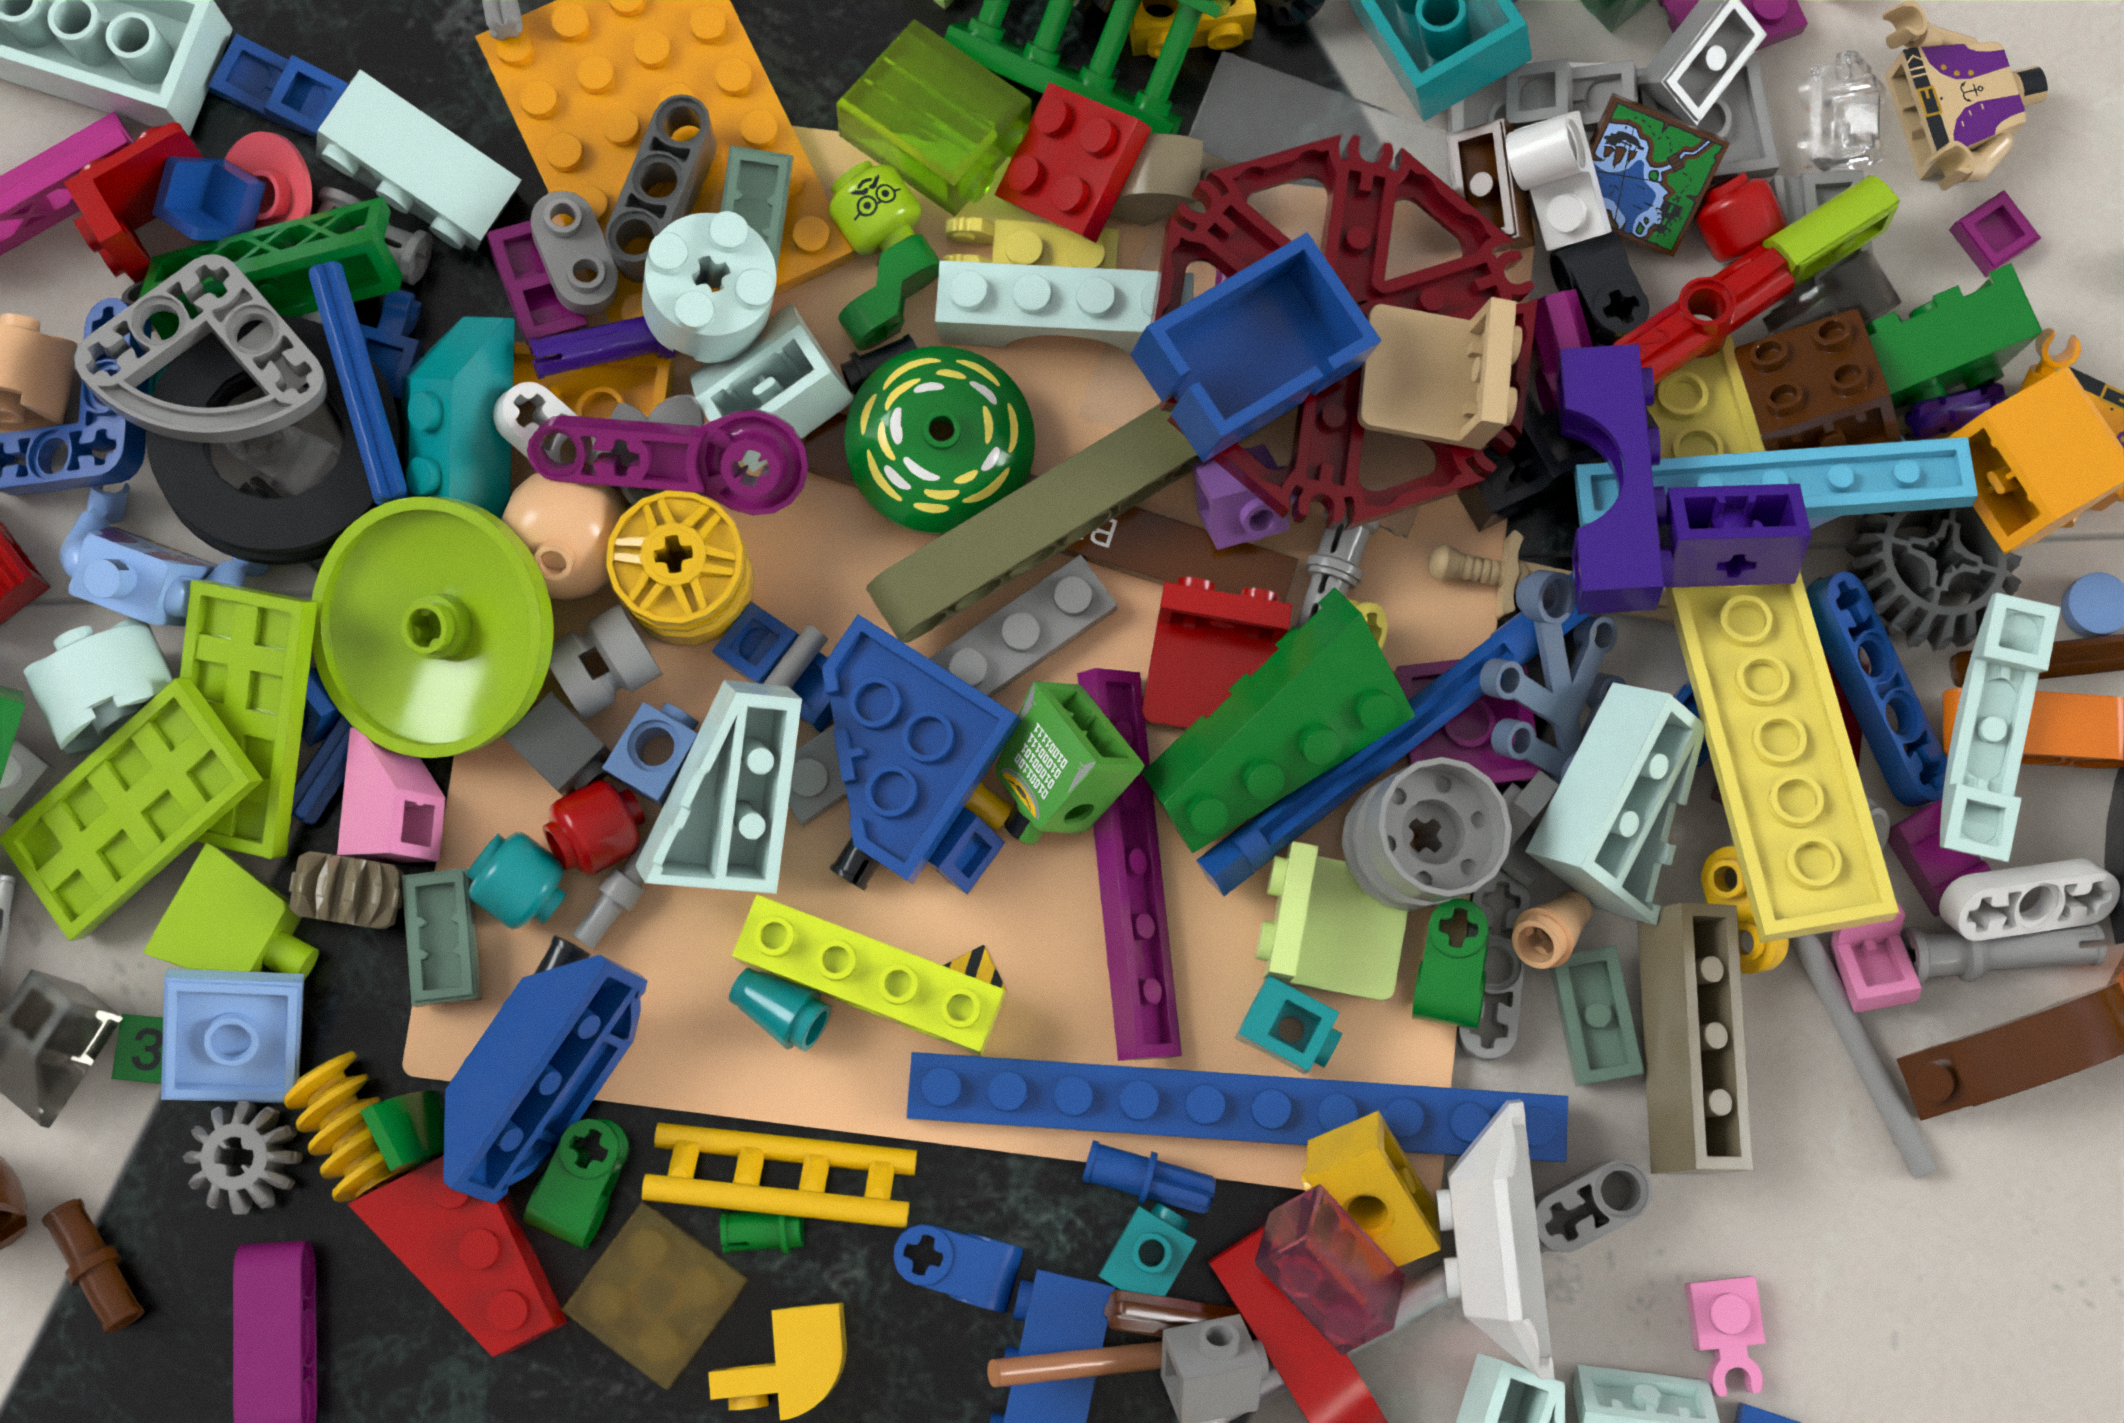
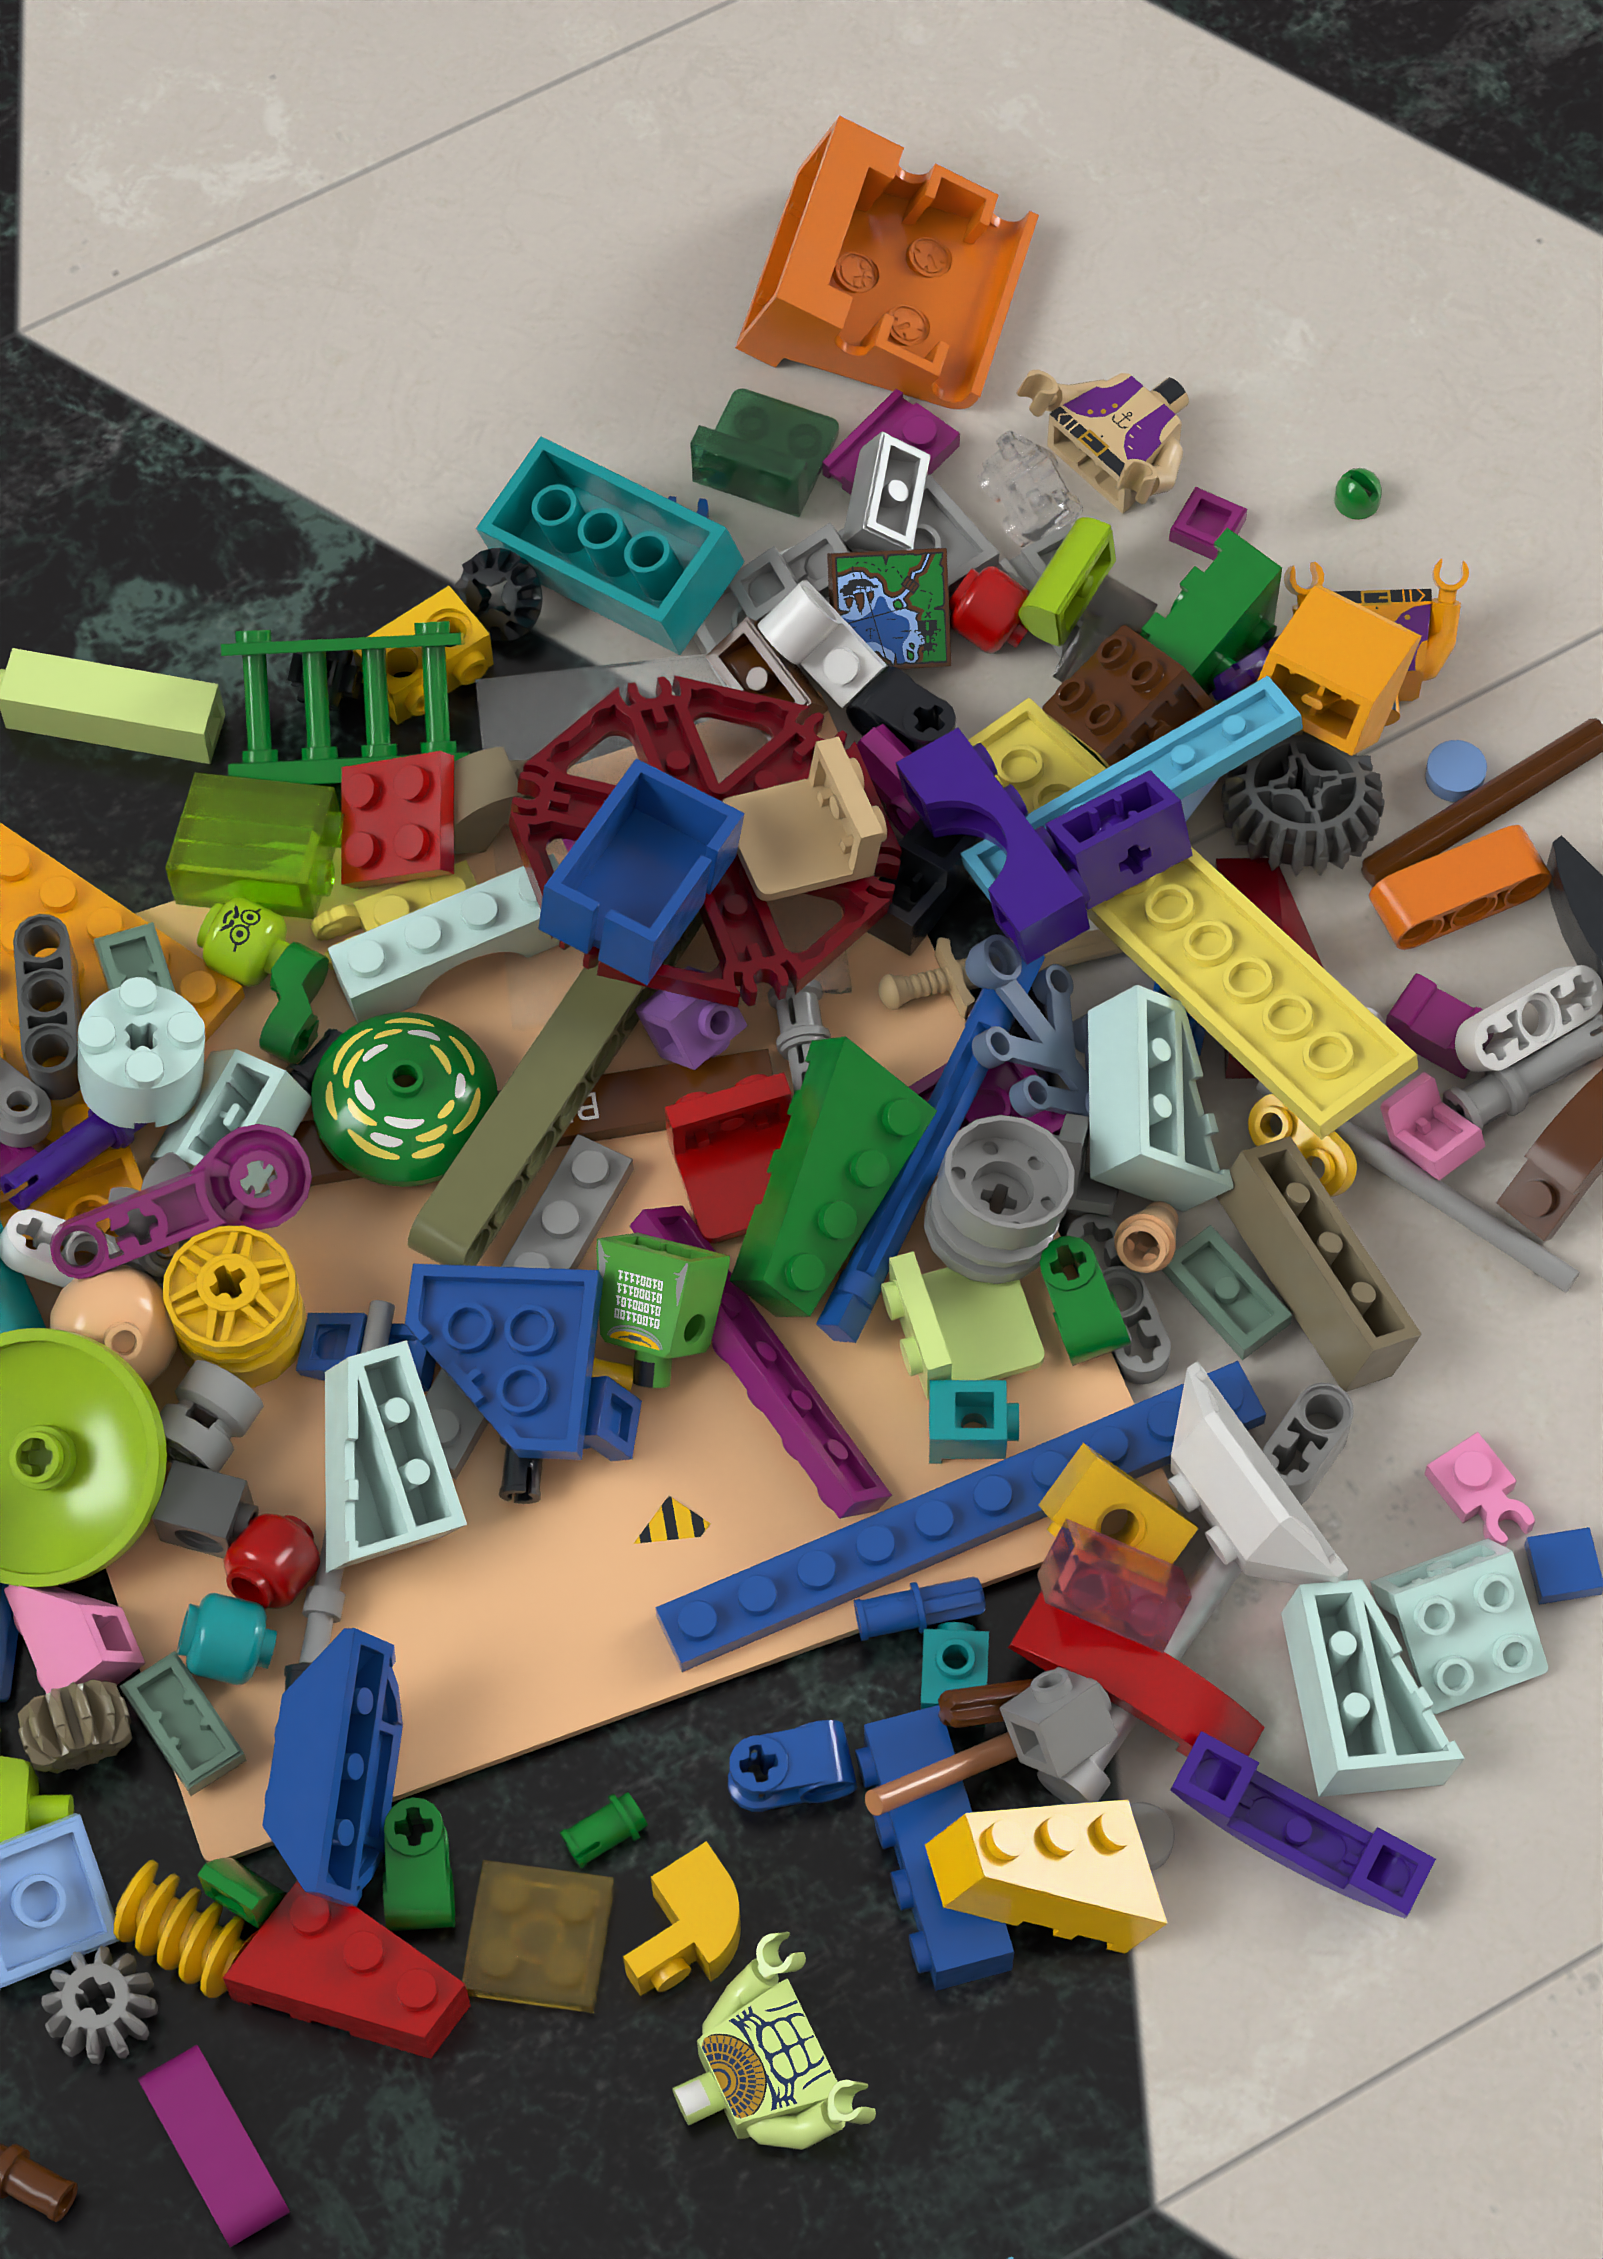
camera: 25 degrees left, 15 degrees down
(626, 760) = (297, 1497): medium blue brick -> none
(781, 1008) = (520, 1629): teal cone -> none
(807, 1201) = (574, 1798): yellow bar -> none
(869, 975) = (584, 1559): neon yellow brick -> none
(1727, 298) = (1008, 682): red piece -> none
(1884, 686) = (1367, 956): blue beam -> none
(1992, 726) = (1418, 890): light aqua slope -> none

